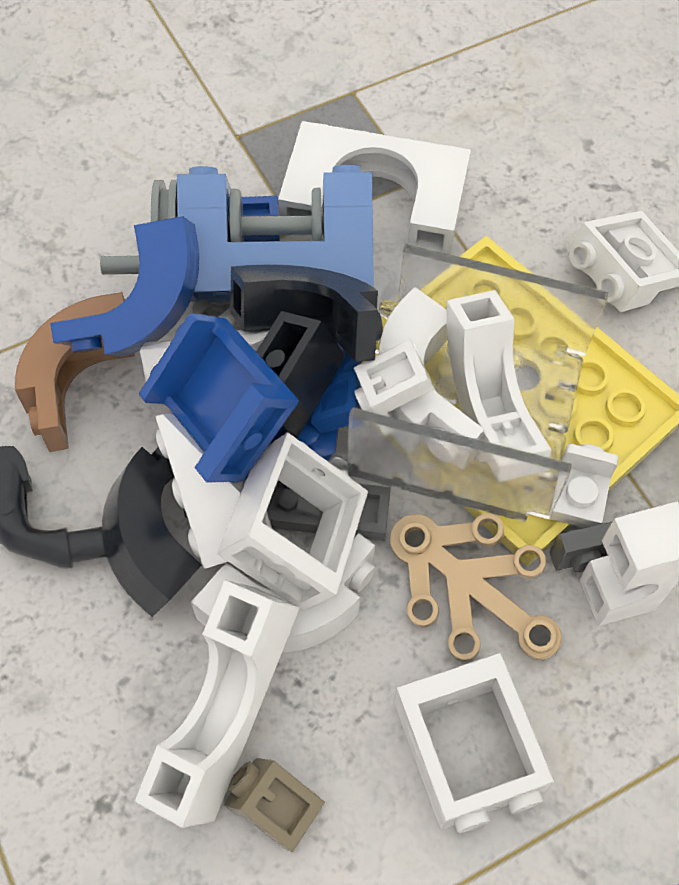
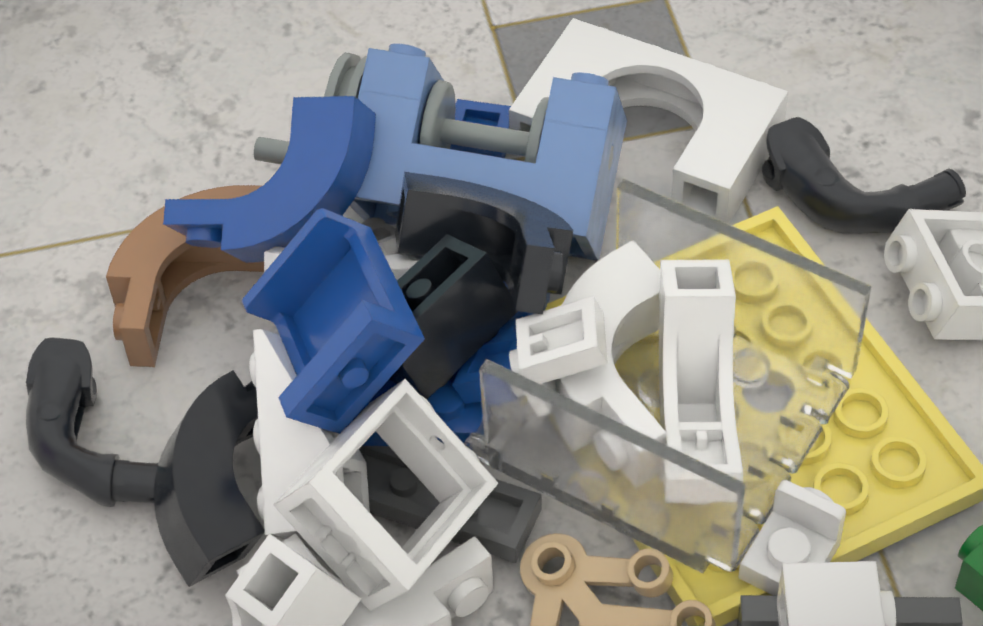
camera: 20 degrees right, 10 degrees down
(505, 215) = (803, 170): none -> black piece

